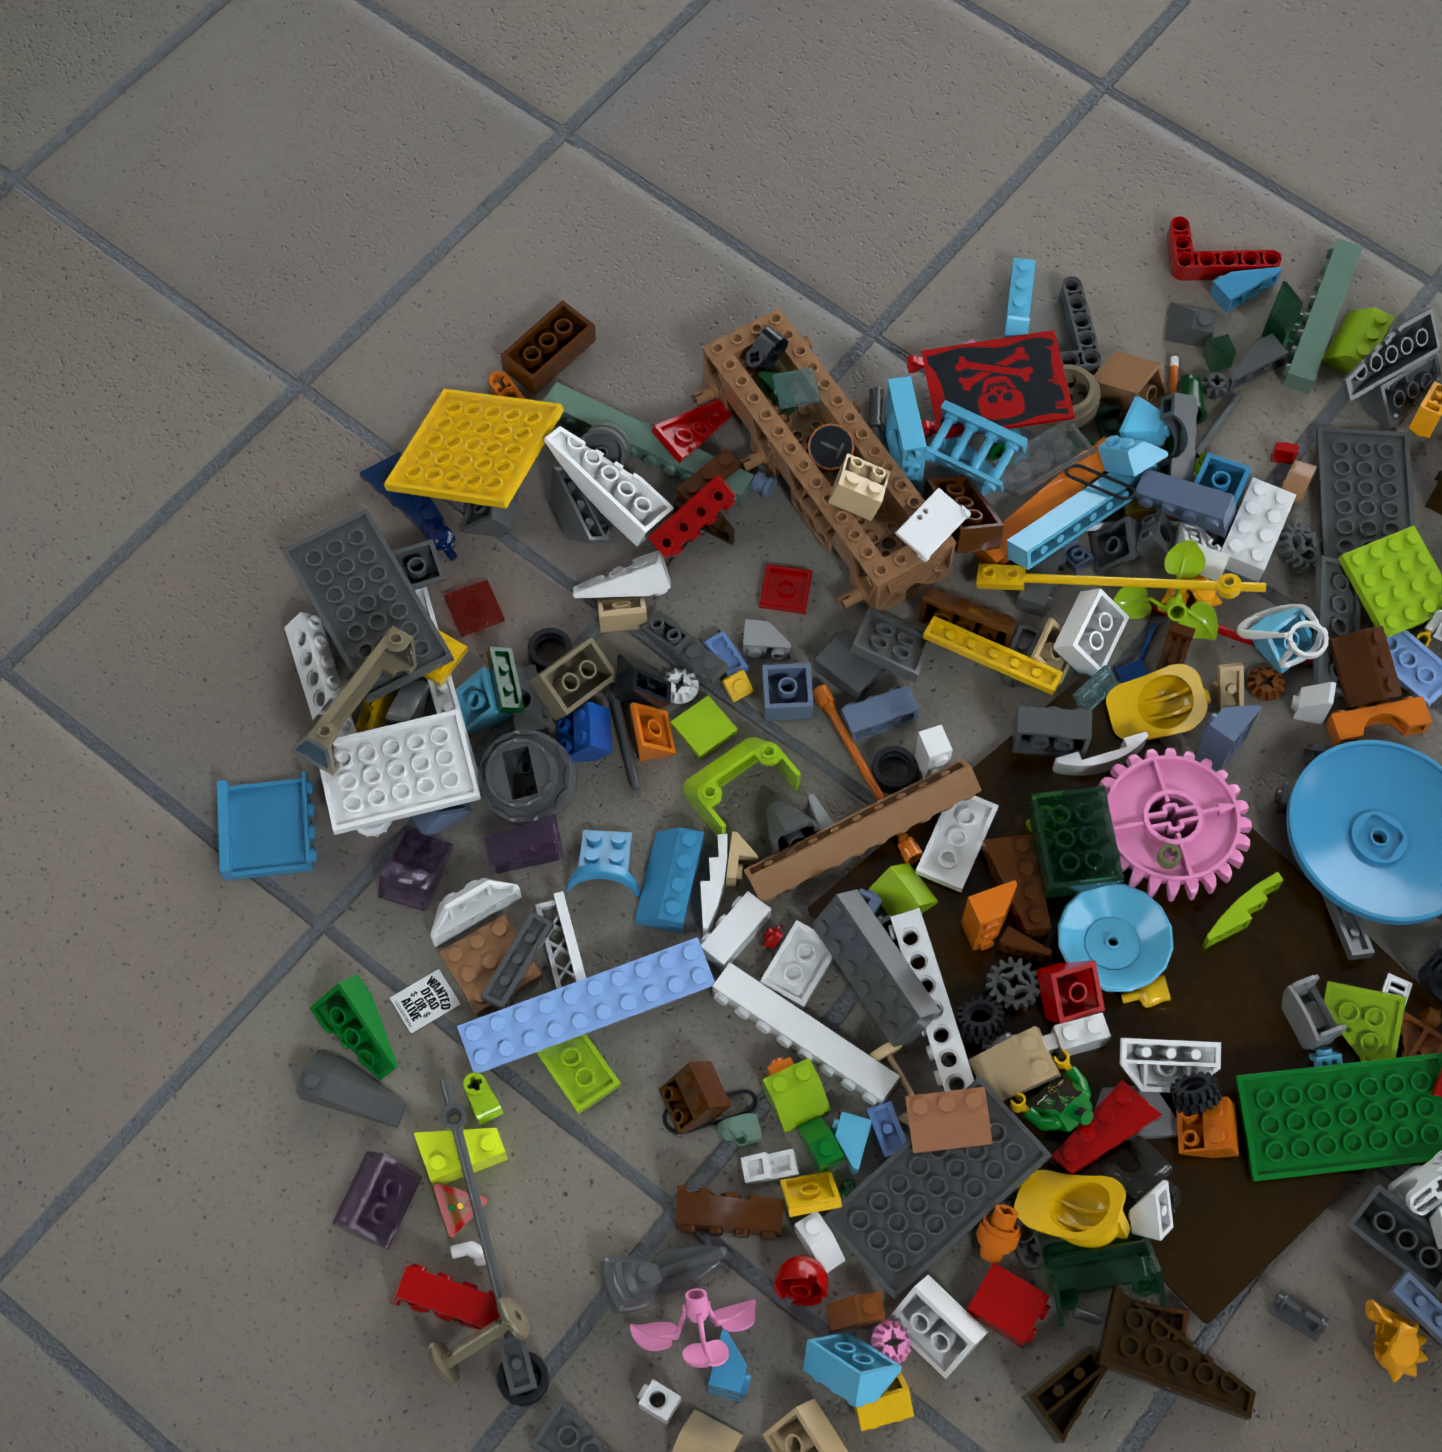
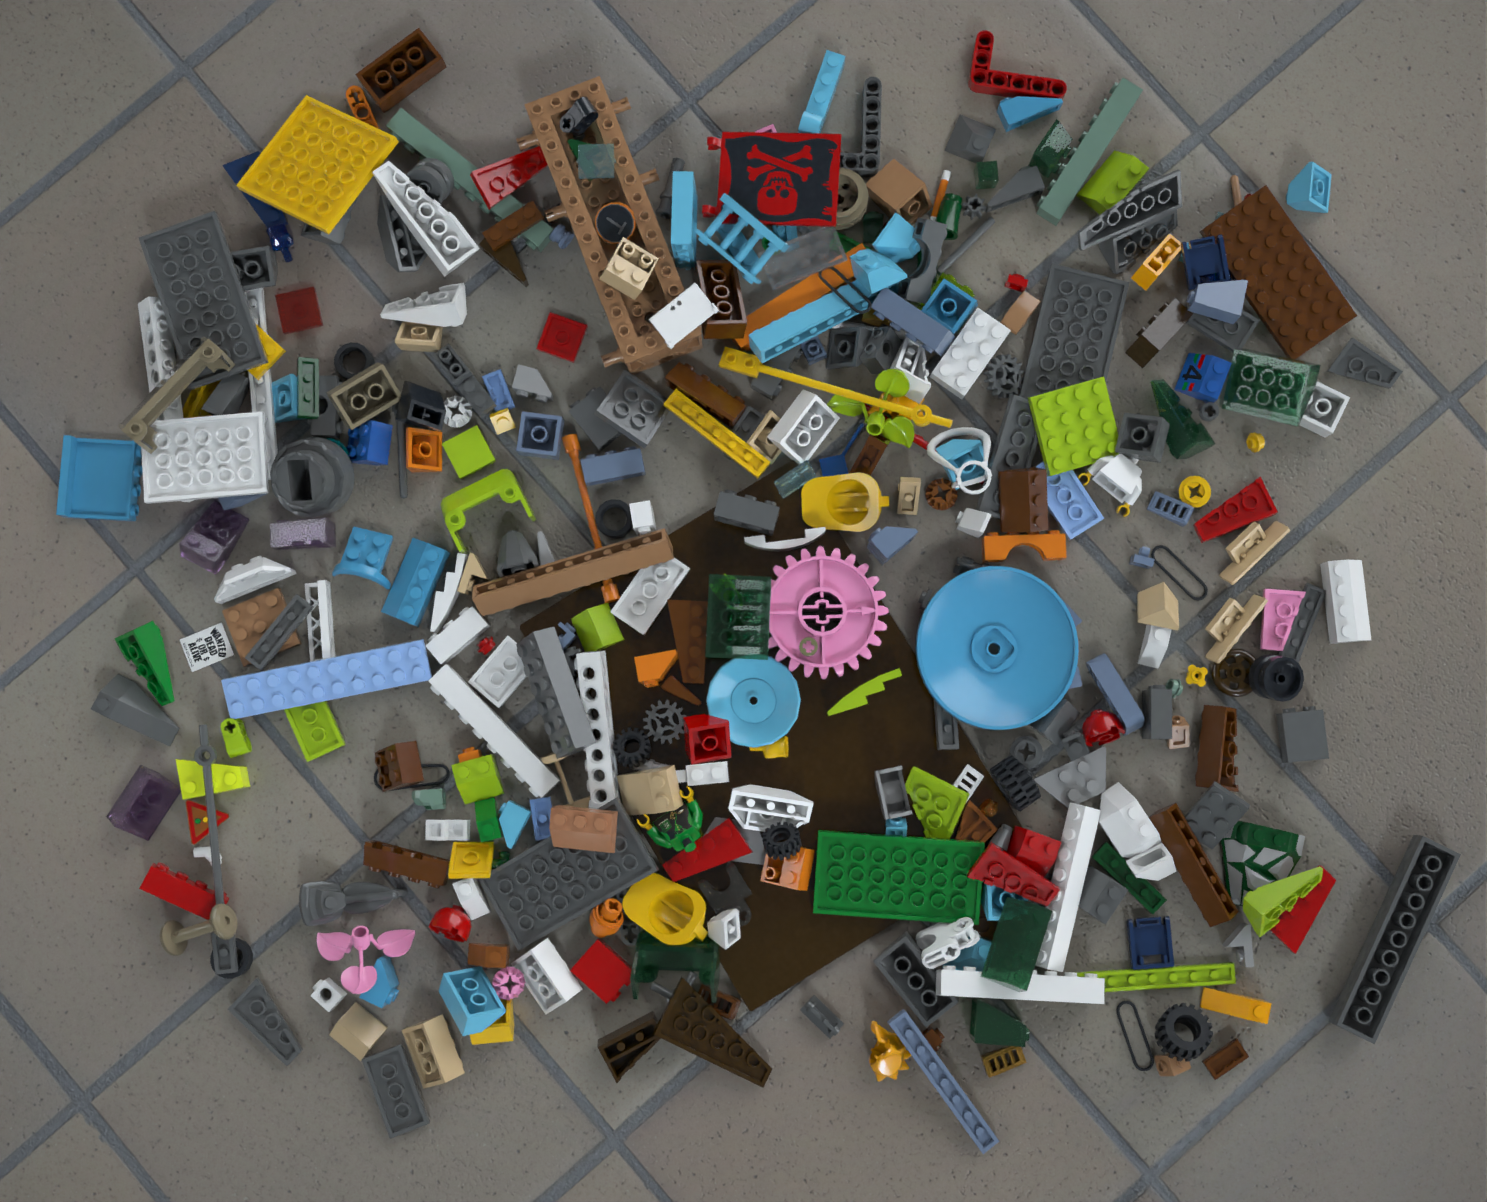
camera: 15 degrees right, 20 degrees up
(688, 520) = (491, 262): red brick -> none

